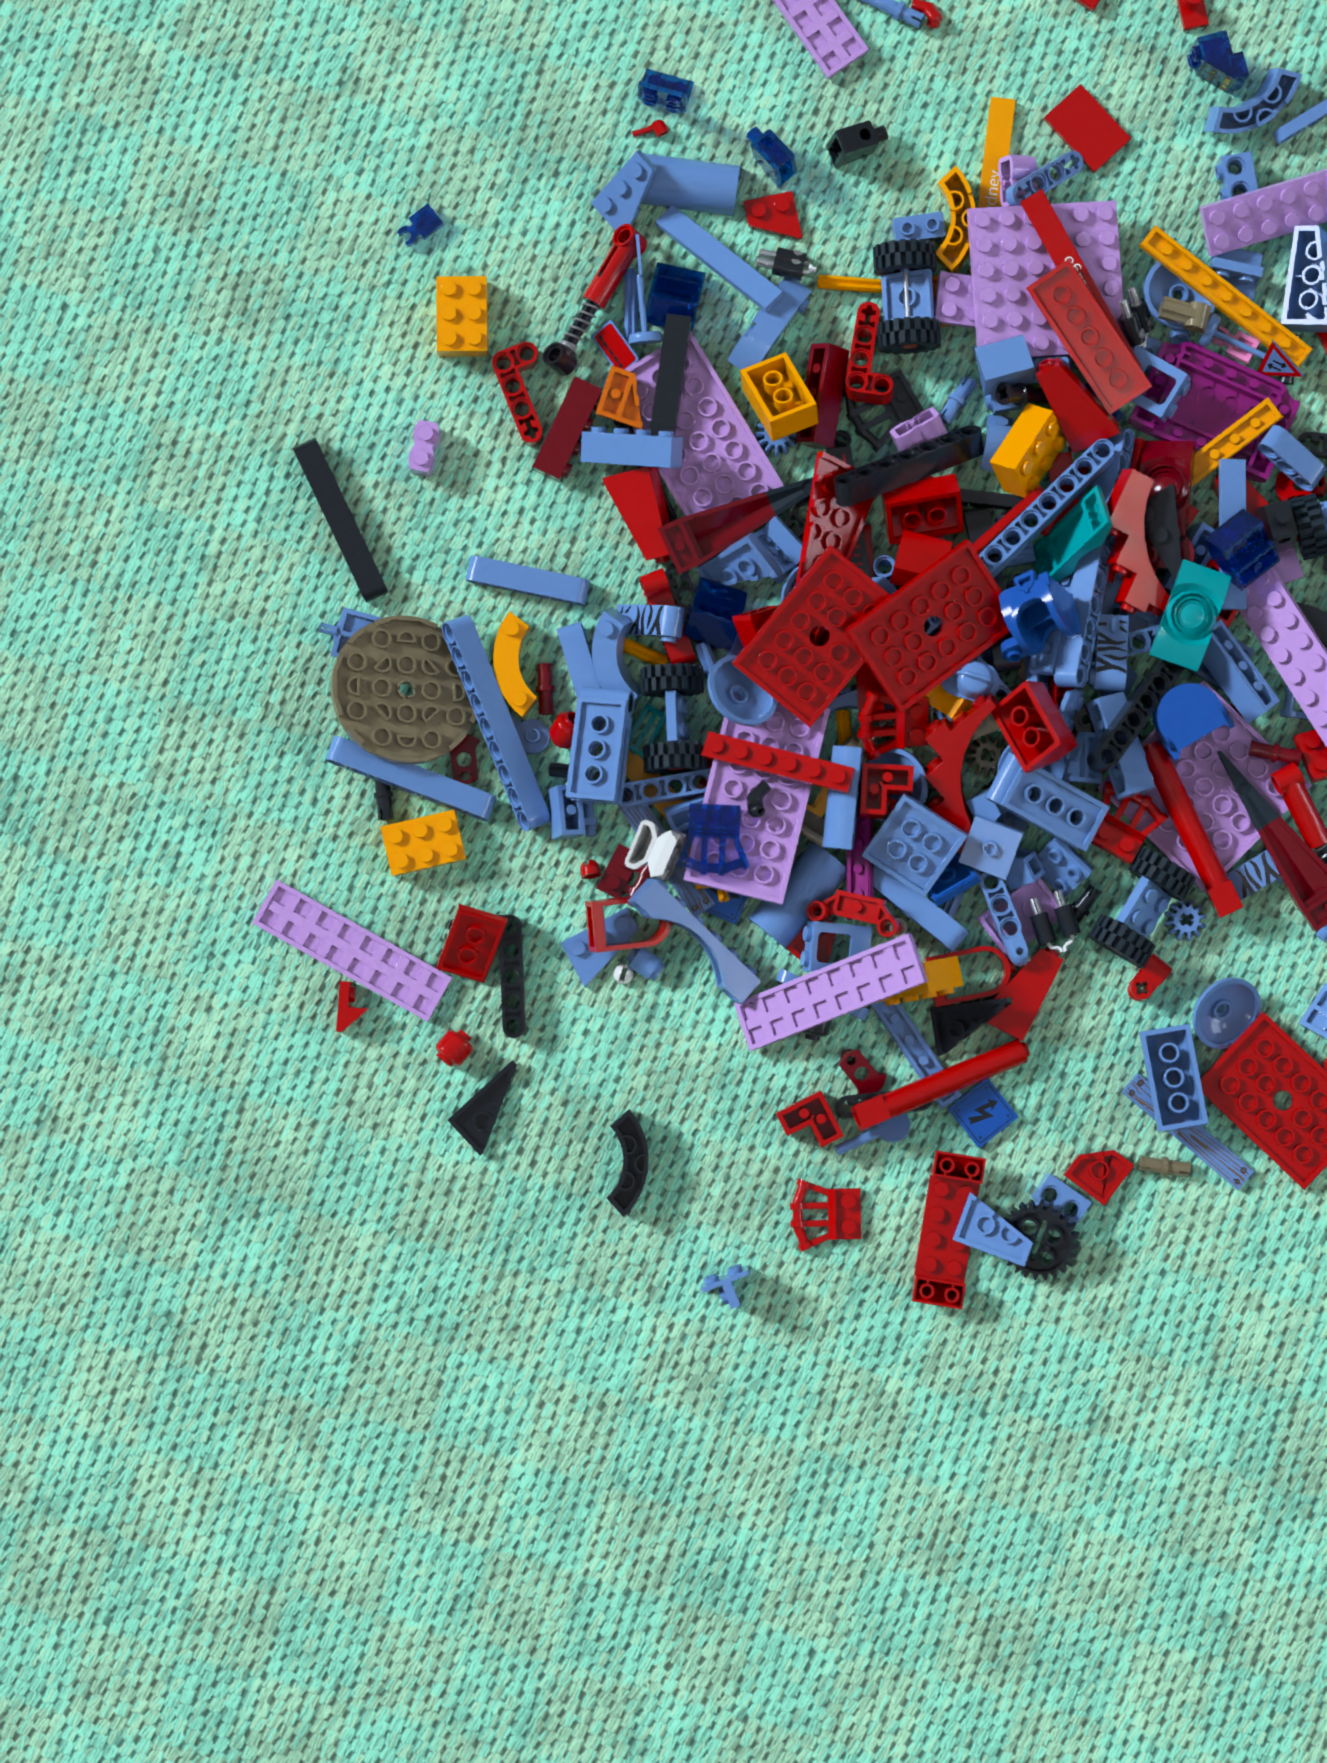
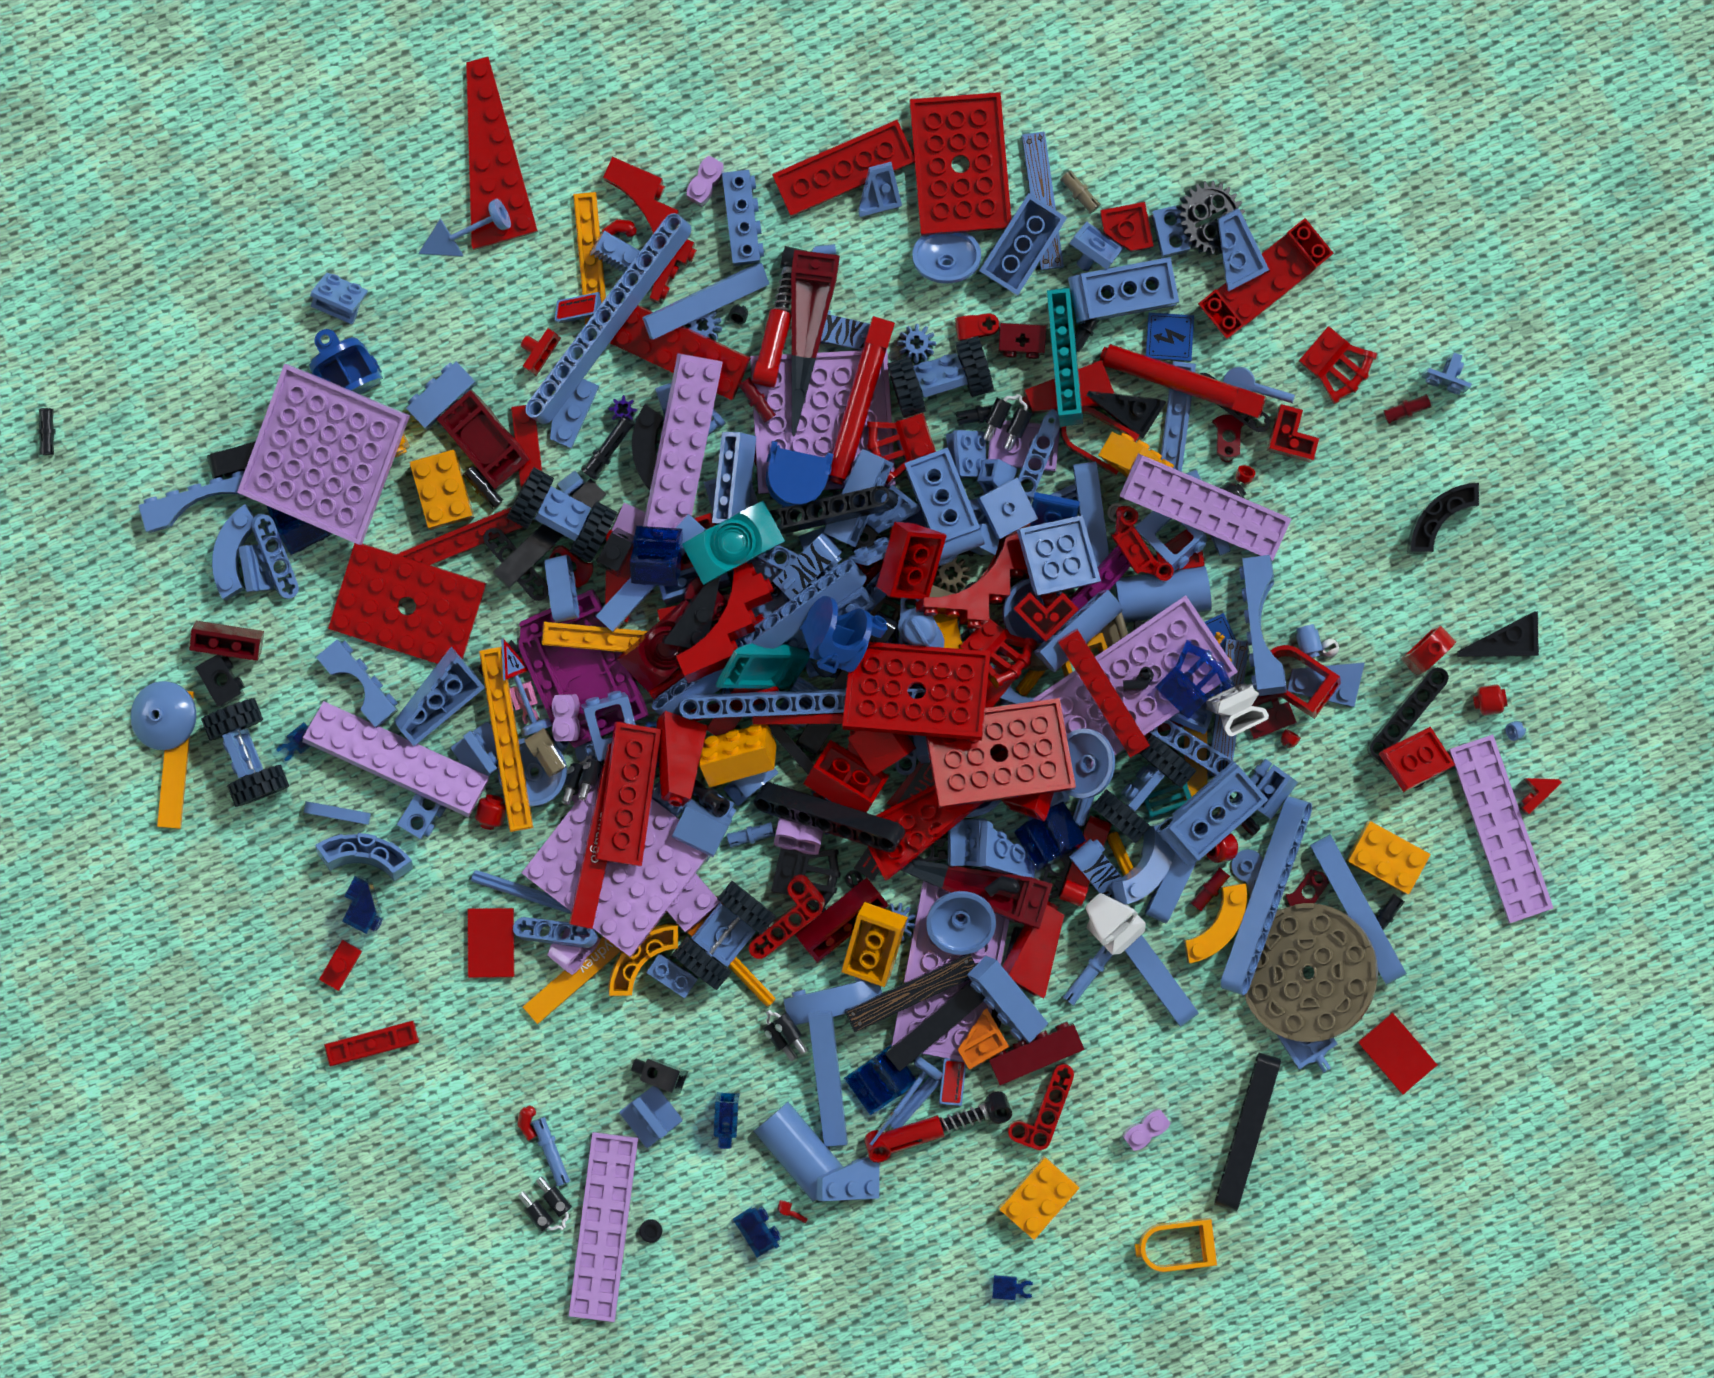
camera: 140 degrees left, 0 degrees up
(275, 692) = (1397, 1053): none -> red tile
(292, 400) = (1206, 1240): none -> light orange window
(411, 1041) = (1515, 735): none -> medium blue hinge
(541, 1041) = (1428, 650): none -> red window
(582, 533) = (1088, 975): none -> medium blue pin
(599, 587) = (1113, 923): none -> white piece
(715, 383) = (910, 993): none -> black tile
(719, 467) = (961, 934): none -> medium blue dish
(719, 537) = (1003, 883): none -> black arm
(735, 1228) = (1407, 408): none -> dark red pin
(750, 15) = (650, 1230): none -> black tile
(774, 214) = (760, 1076): red wing -> none
(822, 1058) = (1245, 474): none -> red hinge
(832, 104) = (651, 1116): none -> medium blue bracket
(1055, 1013) = (1065, 357): none -> teal brick
(1056, 1055) = (1084, 331): none -> black axle
(1088, 1091) = (1092, 306): none -> medium blue hinge
(1095, 1013) = (1033, 333): none -> dark red brick
(1111, 1130) = (1095, 247): none -> medium blue tile
(1112, 185) = (517, 890): none -> medium blue axle
(1184, 229) = (491, 811): none -> red head
(1190, 354) = (566, 724): none -> lavender brick

